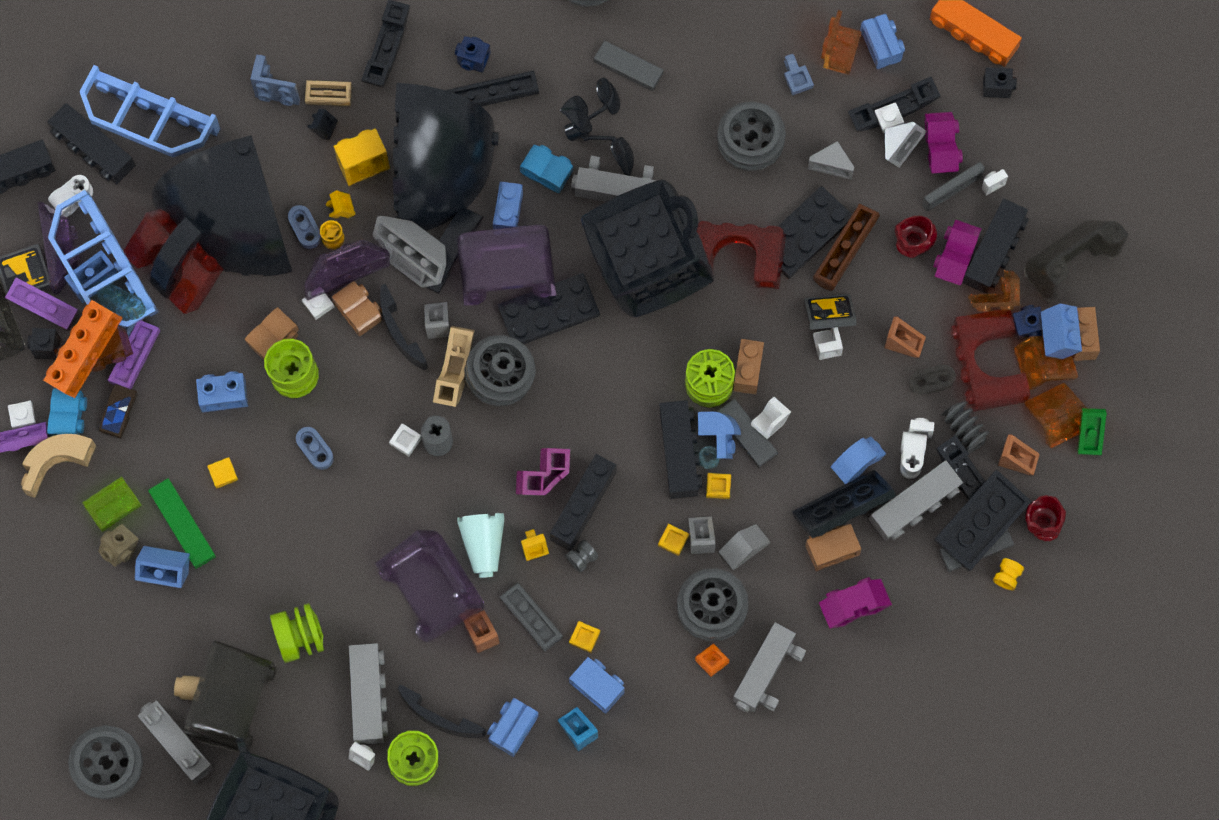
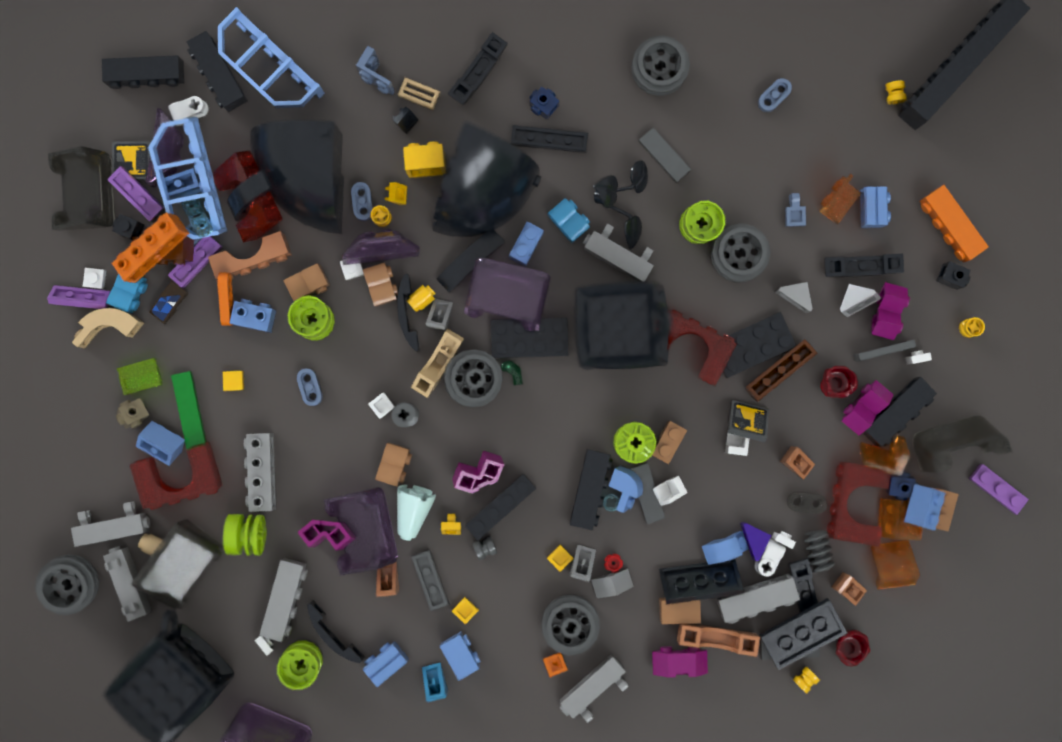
camera: 15 degrees right, 15 degrees up
(134, 686) = (110, 529): none -> light grey brick
(175, 346) = (273, 248): none -> nougat arch
(185, 381) = (225, 297): none -> orange beam
(227, 593) = (155, 492): none -> clear red arch
(290, 560) = (260, 472): none -> light grey brick
(382, 599) = (336, 532): none -> magenta brick
(409, 307) = (421, 298): none -> yellow brick
(411, 250) = (438, 254): light grey wedge -> none
(442, 499) = (393, 464): none -> medium nougat brick
(544, 350) = (514, 370): none -> clear green arm
(697, 107) = (709, 214): none -> lime wheel
(718, 486) = (610, 527): yellow tile -> none
(736, 516) = (608, 563): none -> red plate
(889, 116) = (855, 274): white plate -> none
(889, 437) = (756, 540): none -> dark purple slope
(905, 559) = (727, 639): none -> nougat arch
(1040, 124) = (975, 326): none -> yellow wheel
(1091, 431) = (915, 592): green plate -> none
(1142, 292) = (998, 489): none -> medium lavender plate

